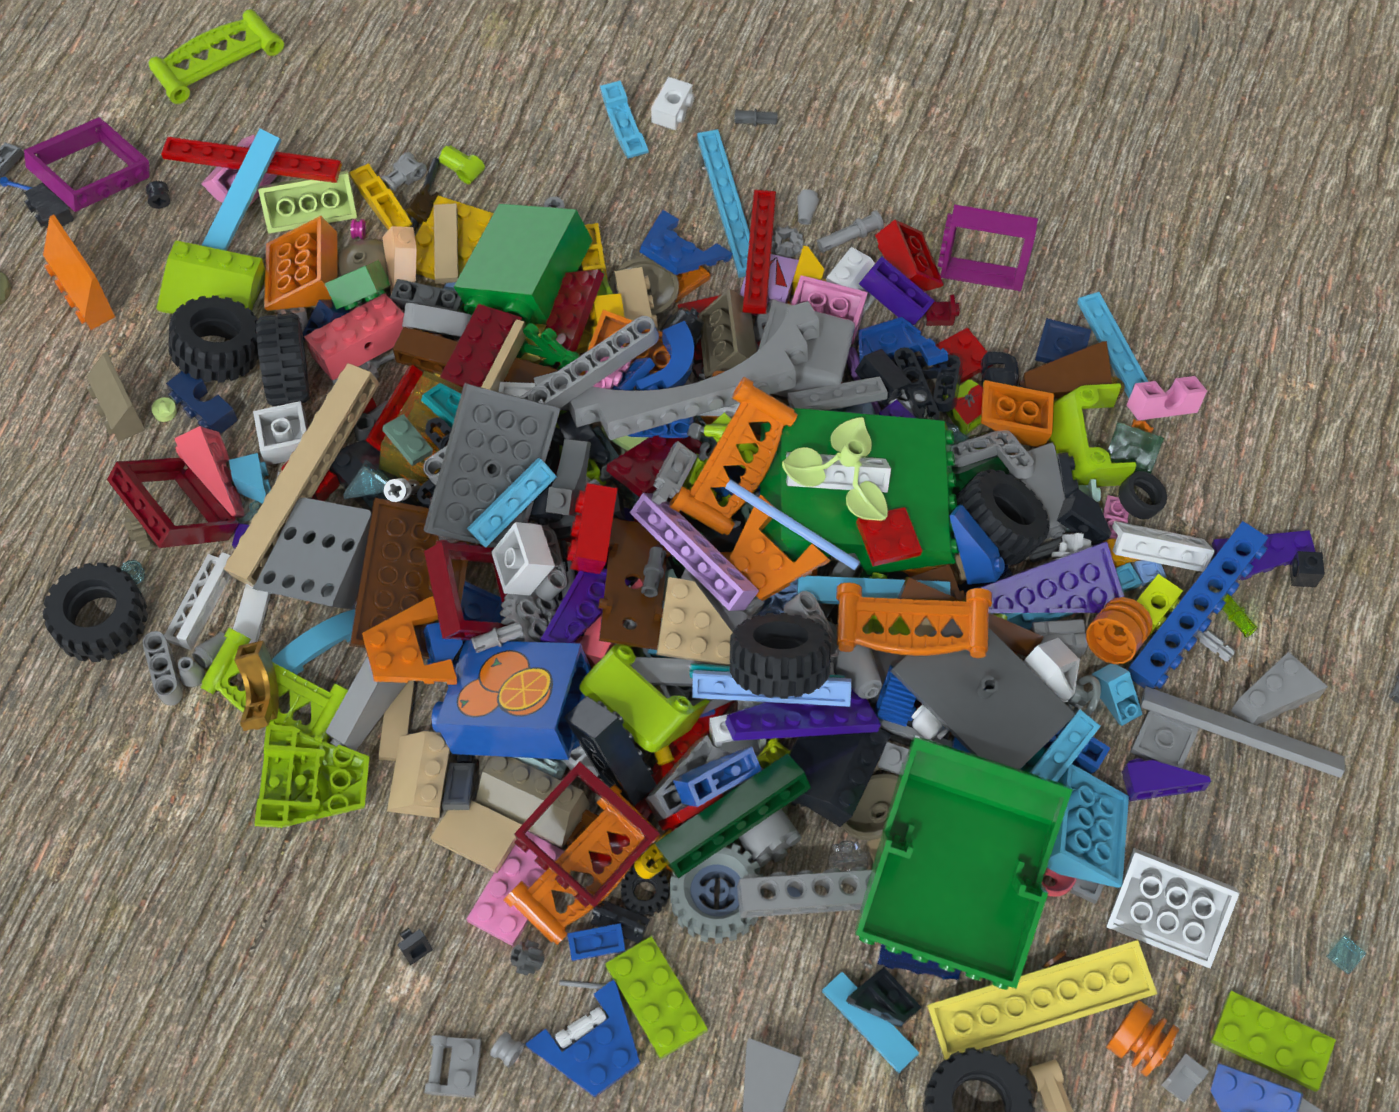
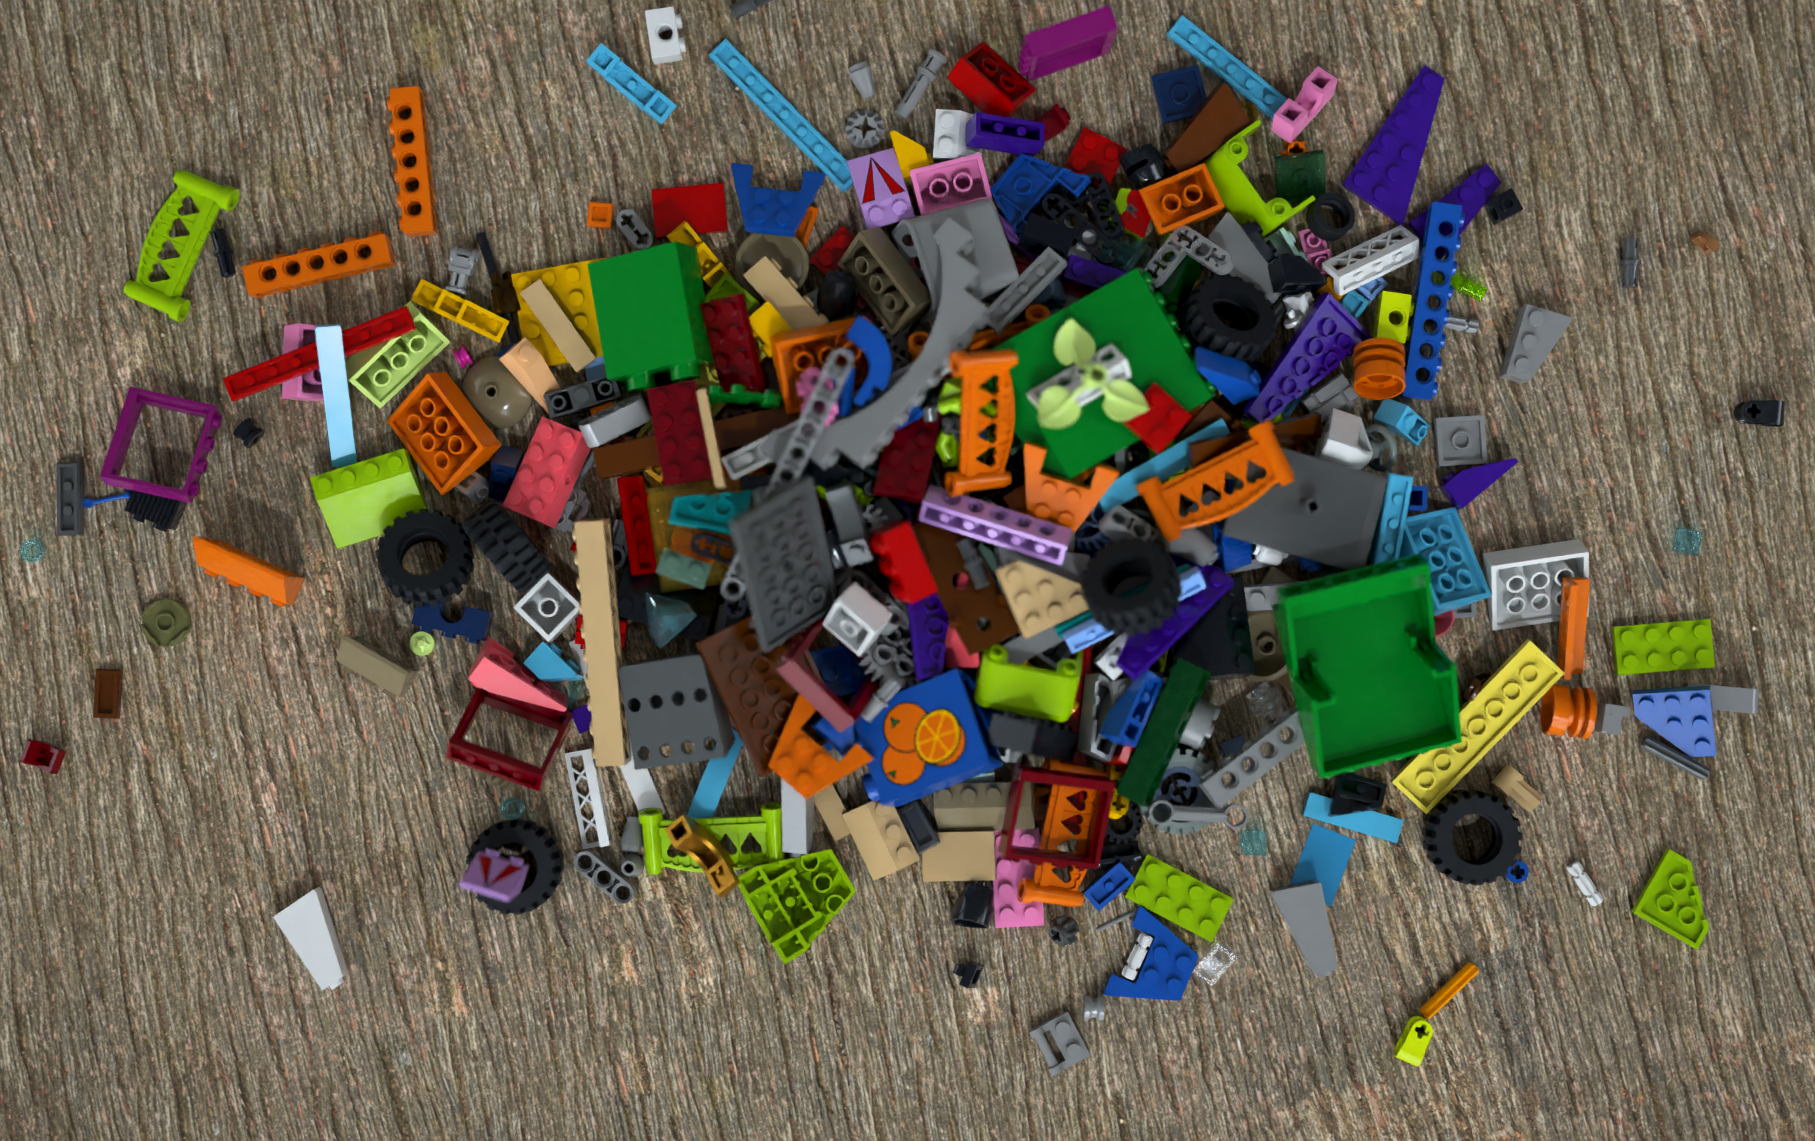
camera: 35 degrees left, 25 degrees up
(70, 588) = (495, 875): none -> lavender slope
(239, 74) = (223, 252): none -> black axle
(301, 117) = (380, 258): none -> orange brick
(356, 285) = (515, 426): brick -> none
(402, 487) = (707, 616): white pin -> none
(422, 89) = (398, 101): none -> orange brick
(464, 881) = (974, 906): none -> black helmet
(465, 166) = (516, 226): lime piece -> none
(511, 502) = (817, 577): medium azure tile -> none
(536, 194) = (600, 215): none -> orange tile
(617, 227) = (698, 205): none -> red tile
(651, 1075) = (1215, 962): none -> clear slope
(673, 472) = (936, 466): light grey hinge -> none
(720, 912) = (1199, 814): none -> light grey piece
(759, 252) = (855, 164): red tile -> none
(759, 988) = (1253, 842): none -> clear light blue tile
(792, 524) = (1072, 461): light blue piece -> none
(822, 1049) = (1324, 860): none -> dark azure sticker
(1189, 961) = (1572, 625): none -> orange fence
(1225, 485) = (1392, 160): none -> dark purple wing
(1243, 732) = (1520, 396): light grey tile -> none

